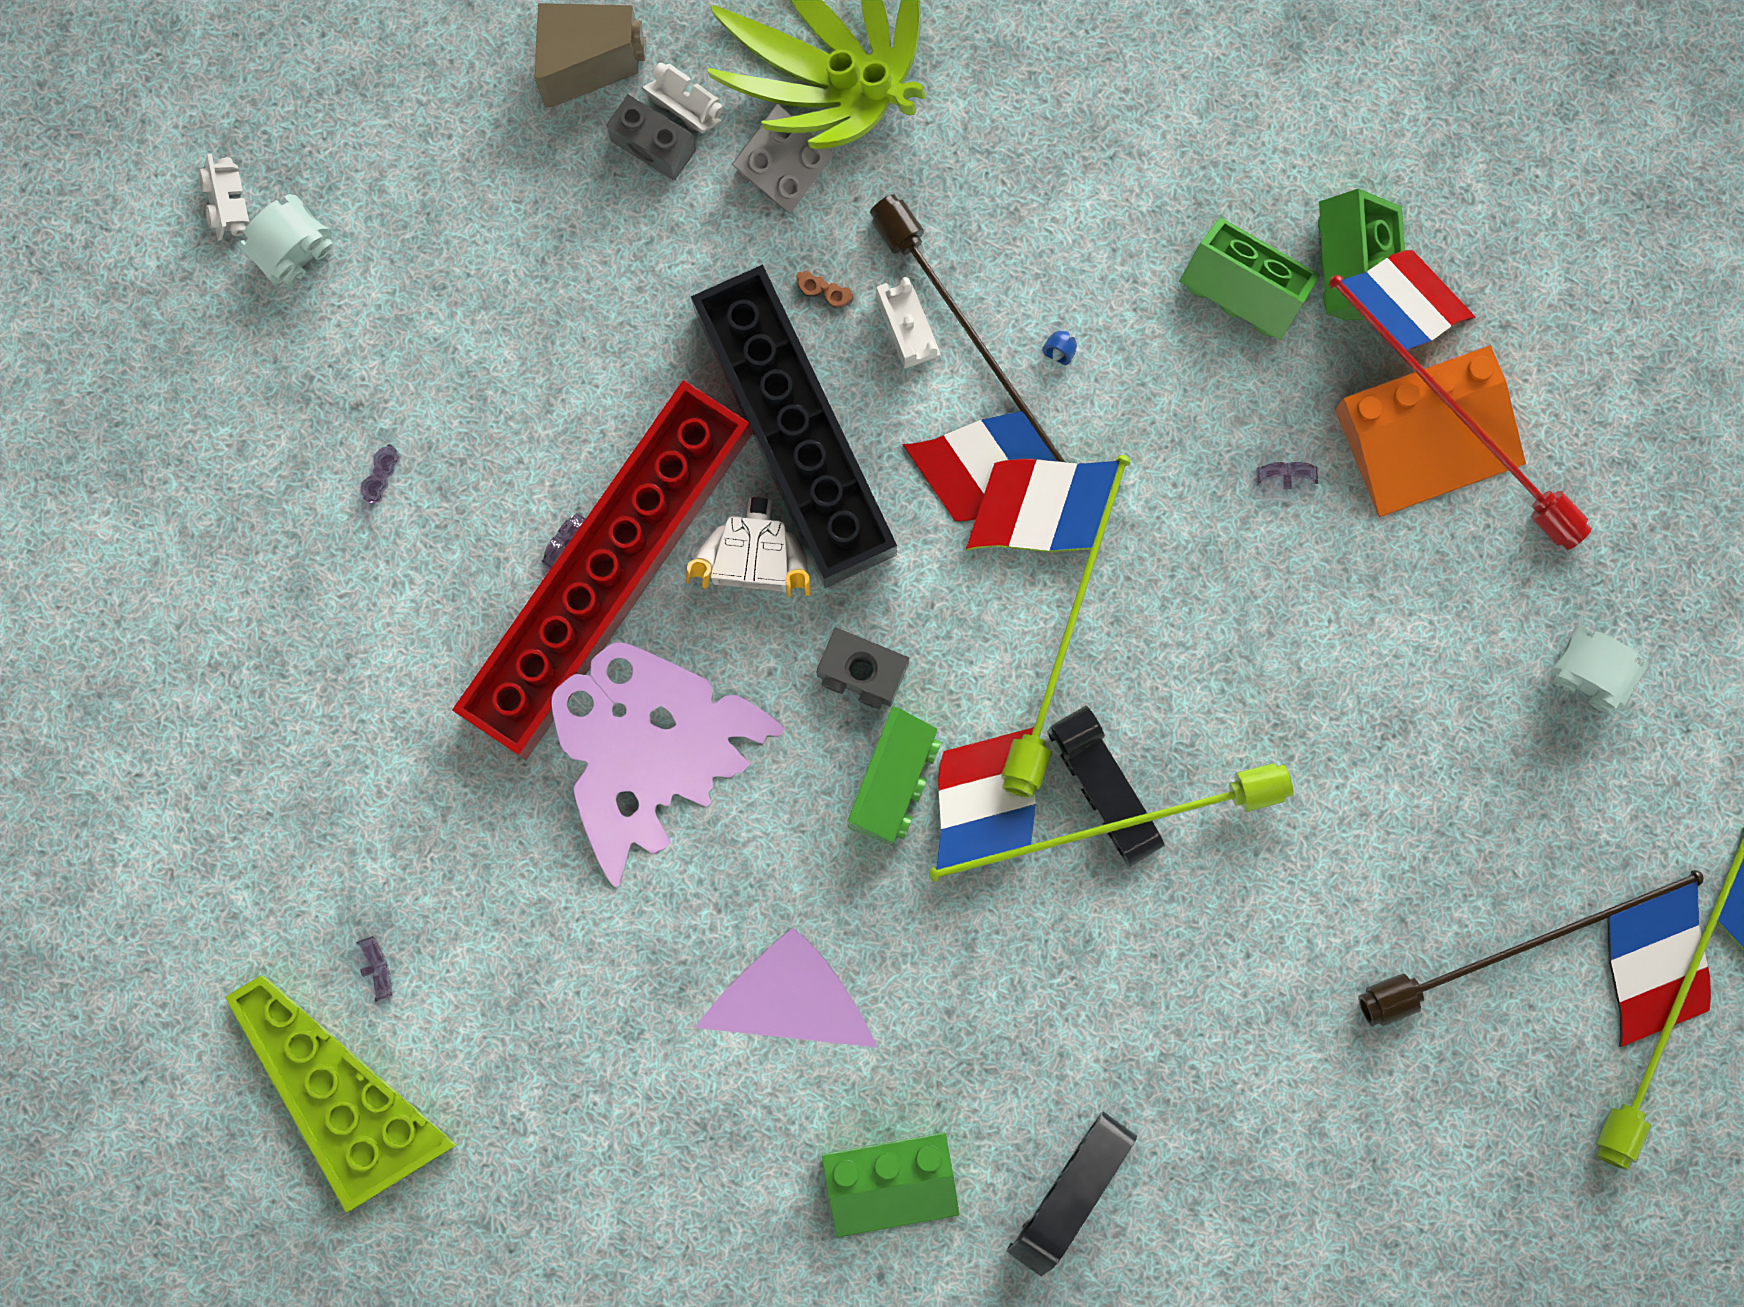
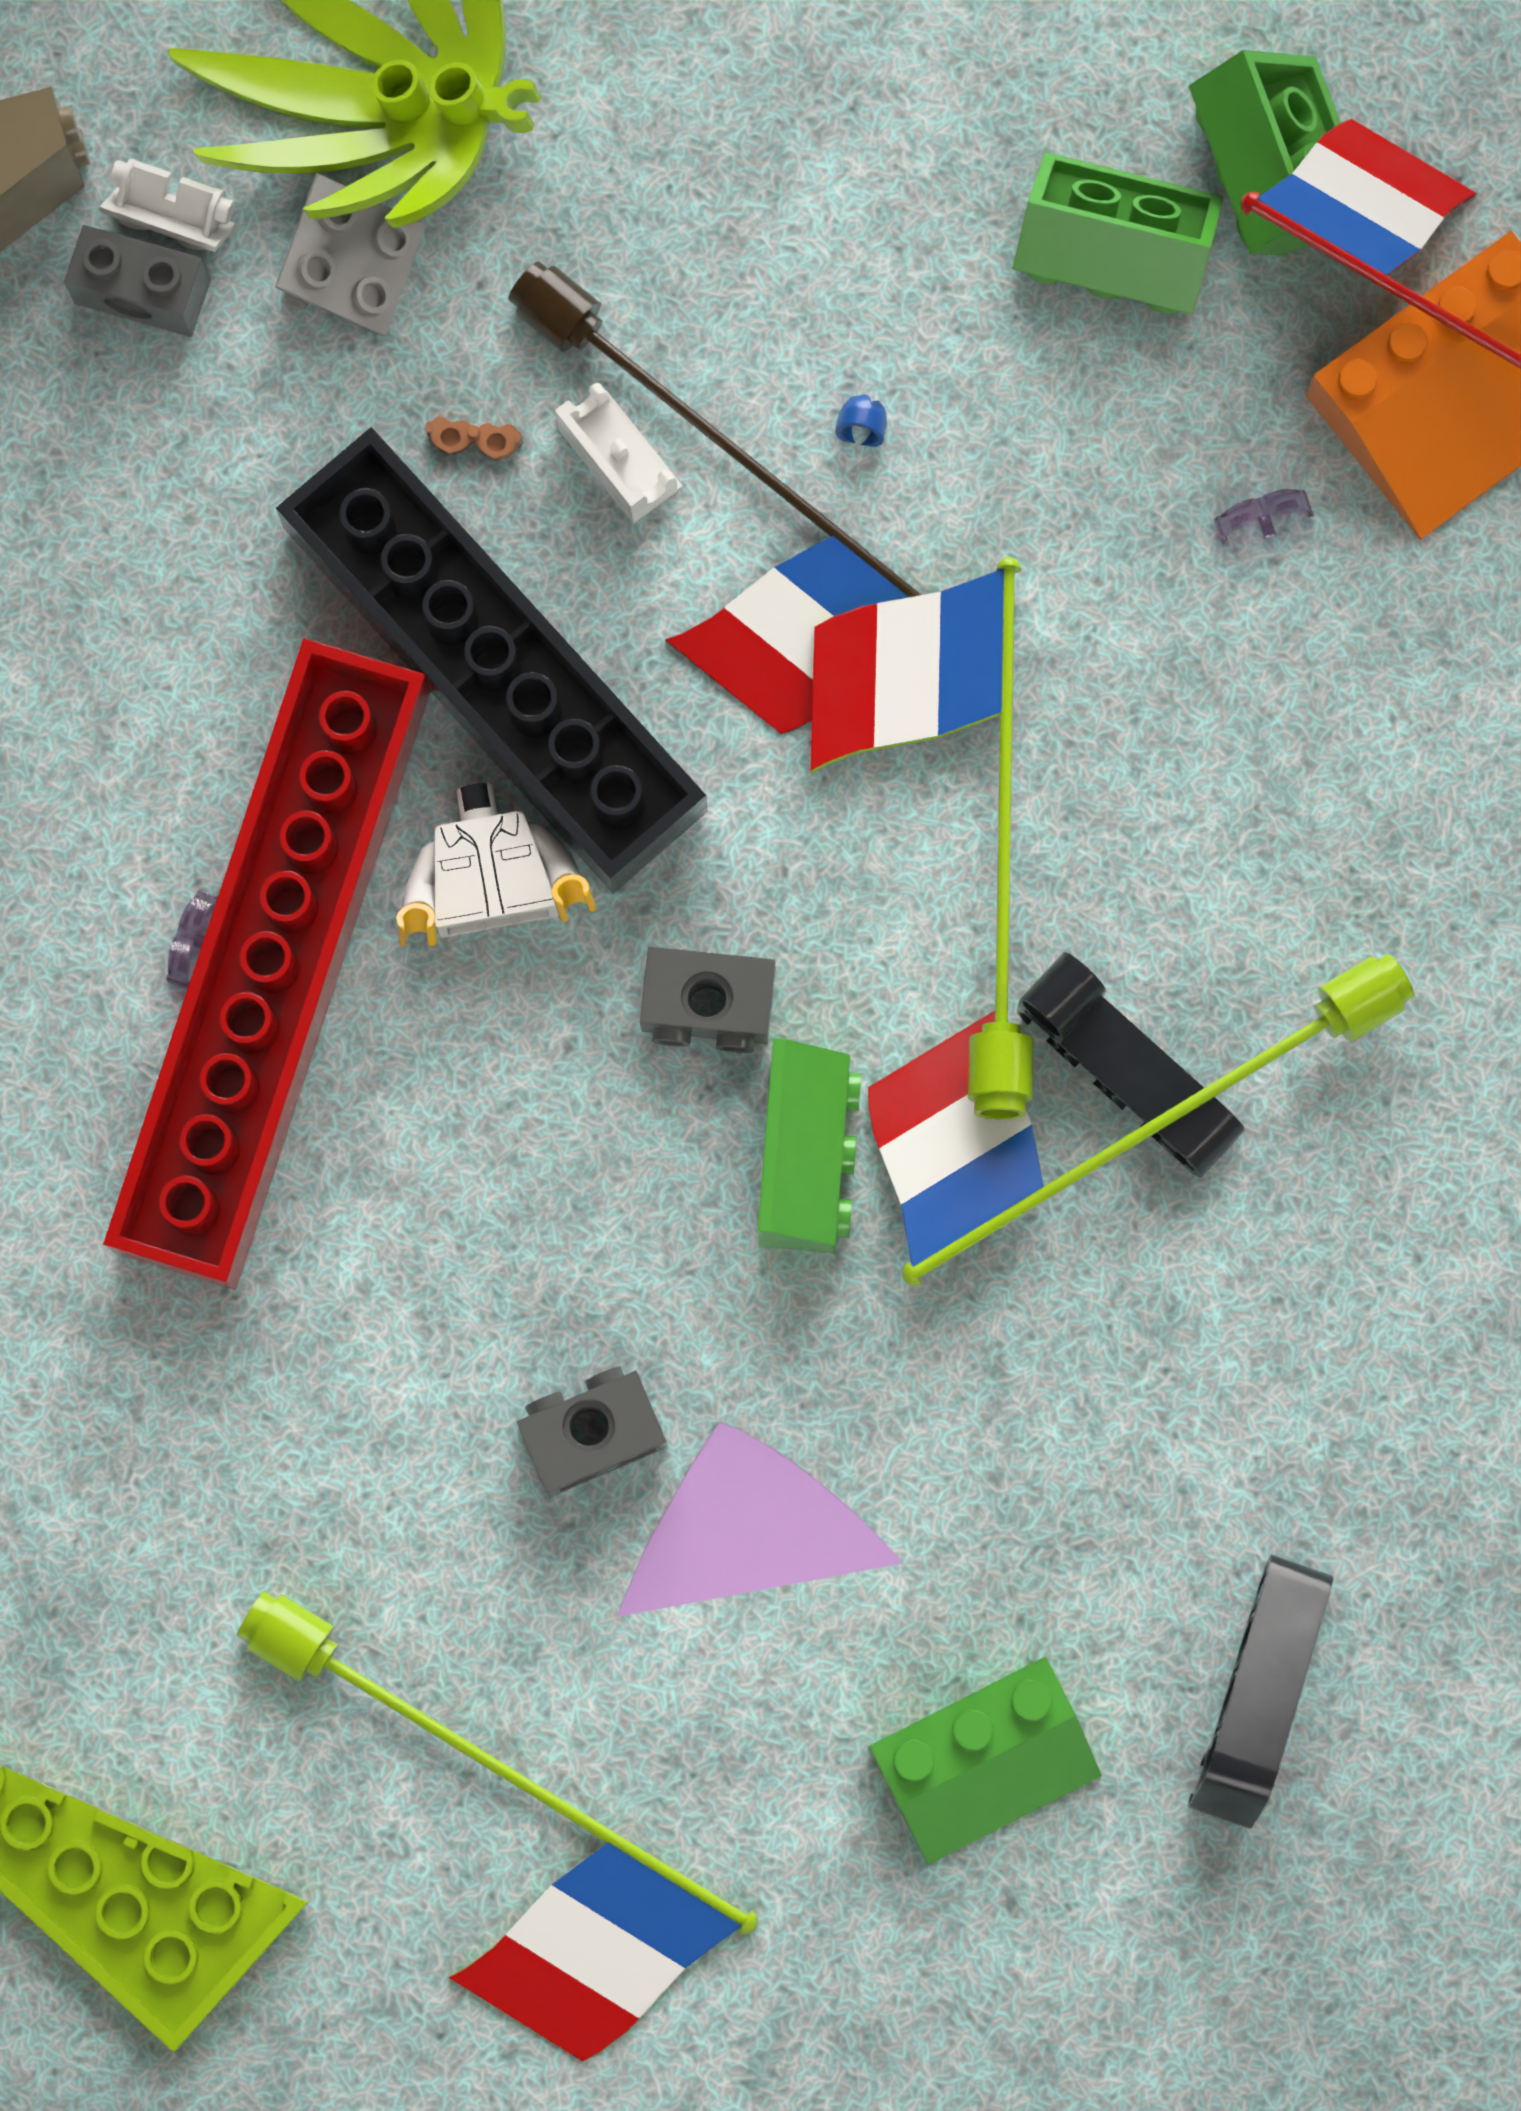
camera: 15 degrees left, 0 degrees up
(378, 967) = (106, 1671): clear purple piece -> none
(622, 1221) = (598, 1936): none -> flag
(643, 758) = (419, 1231): lavender piece -> none
(686, 913) = (630, 1437): none -> dark grey brick

